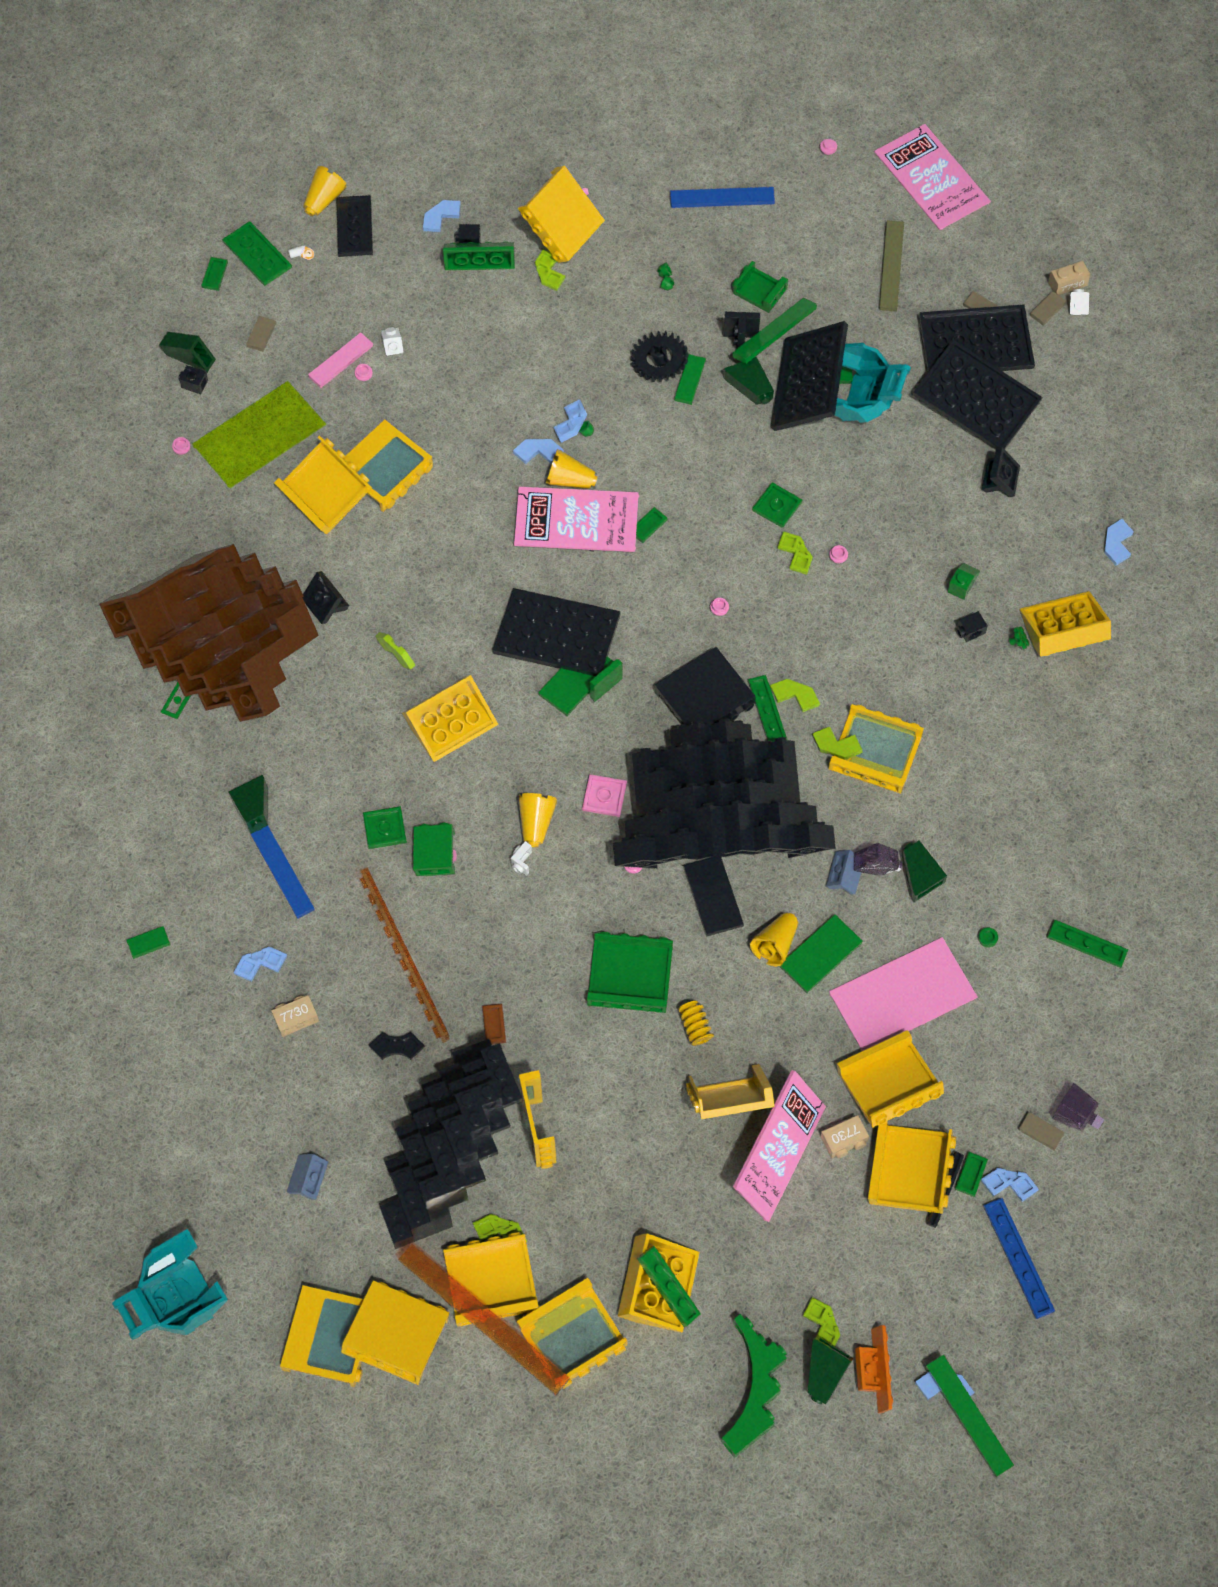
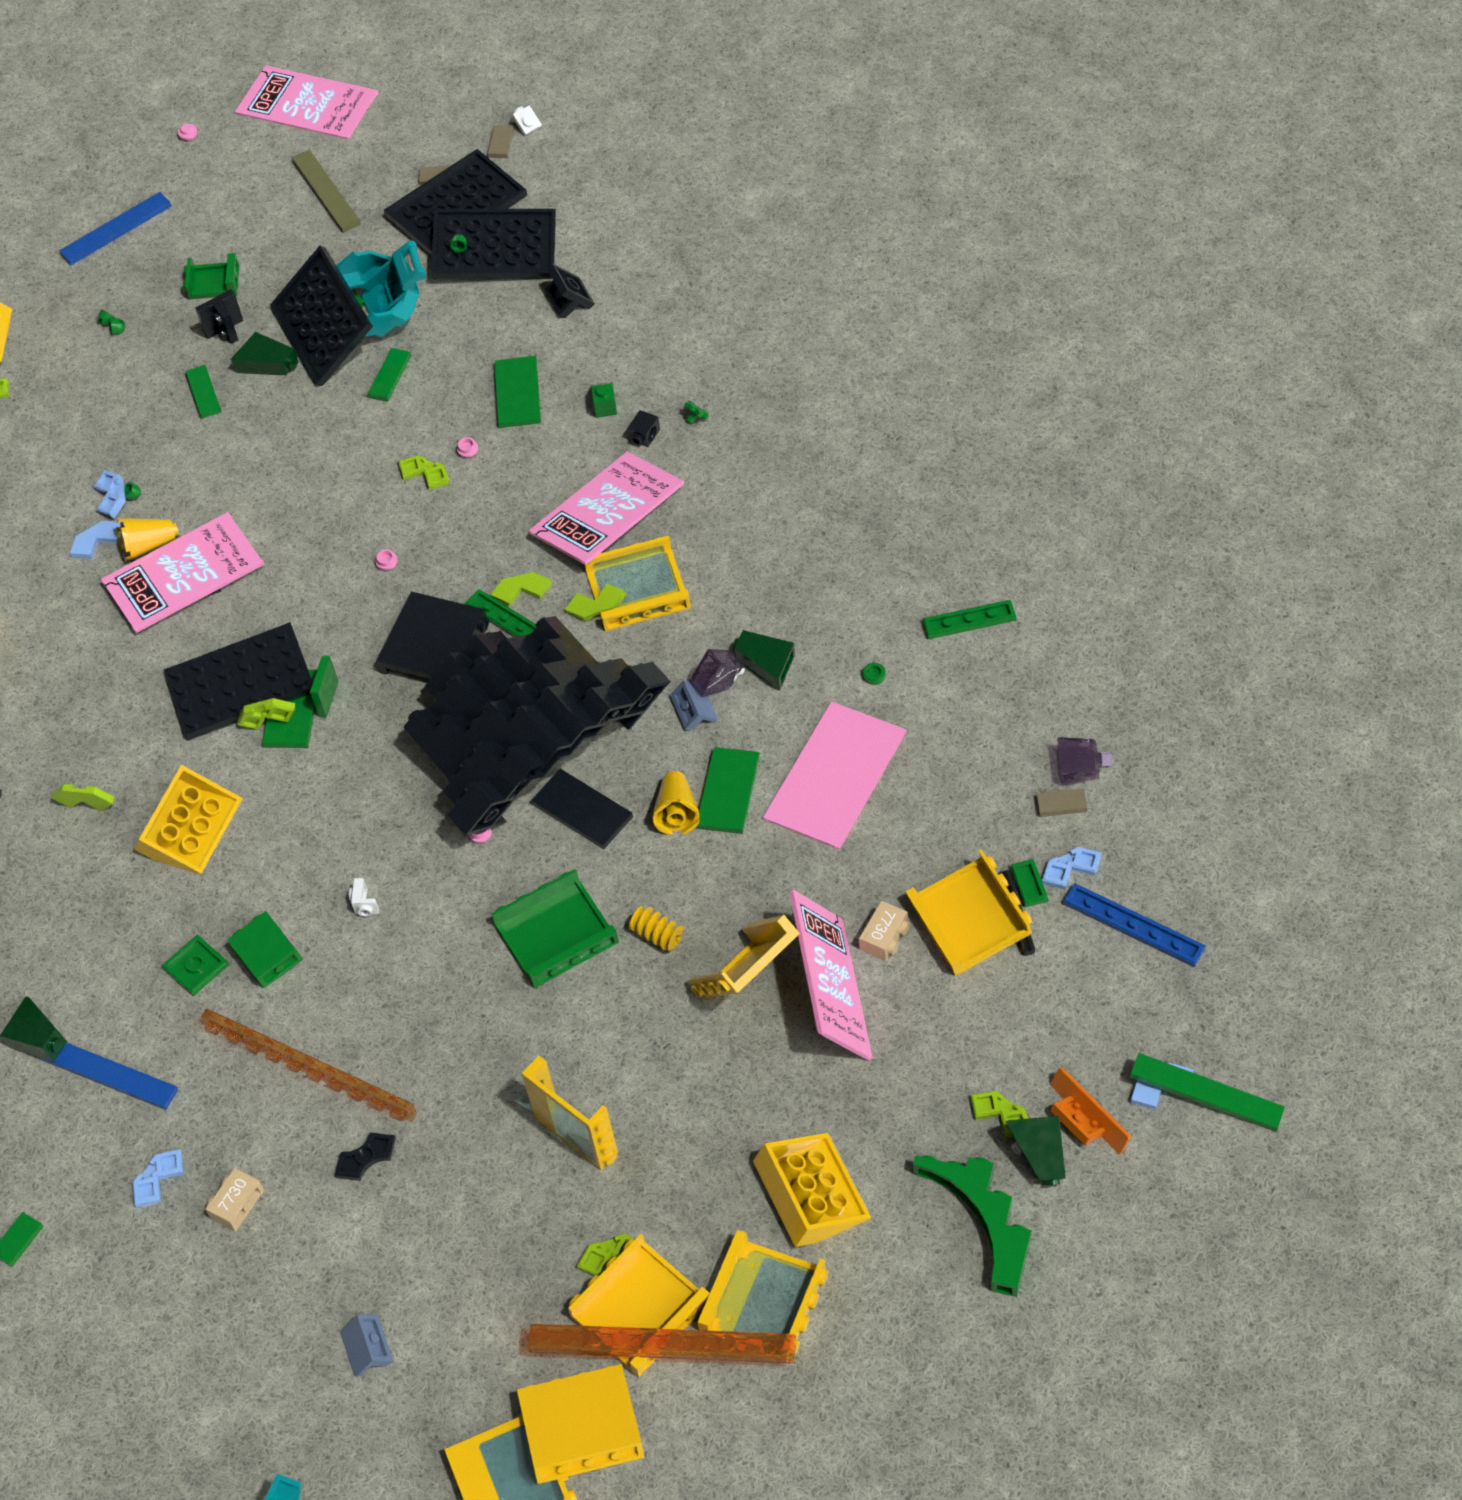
camera: 30 degrees left, 10 degrees down
(447, 1141) = (496, 1194): black panel -> none
(494, 1023) = (452, 1068): dark orange tile -> none
(536, 816) = (346, 849): yellow cone -> none
(547, 669) = (254, 714): none -> lime tile
(604, 795) = (402, 791): bright pink tile -> none
(649, 524) = (260, 533): green tile -> none
(656, 348) = (152, 384): black gear -> none
(669, 1286) = (824, 1180): green tile -> none
(774, 330) = (255, 302): green tile -> none
(777, 505) = (374, 443): green tile -> none
(827, 455) = (389, 374): none -> green tile
(889, 1079) = (884, 851): yellow panel -> none
(899, 673) = (606, 507): none -> bright pink piece
(907, 532) = (517, 392): none -> green tile
(949, 381) = (454, 243): none -> green hinge
(1066, 623) = (729, 374): yellow slope -> none
(1069, 278) = (500, 105): tan brick -> none
(1115, 535) = (720, 291): light blue tile -> none

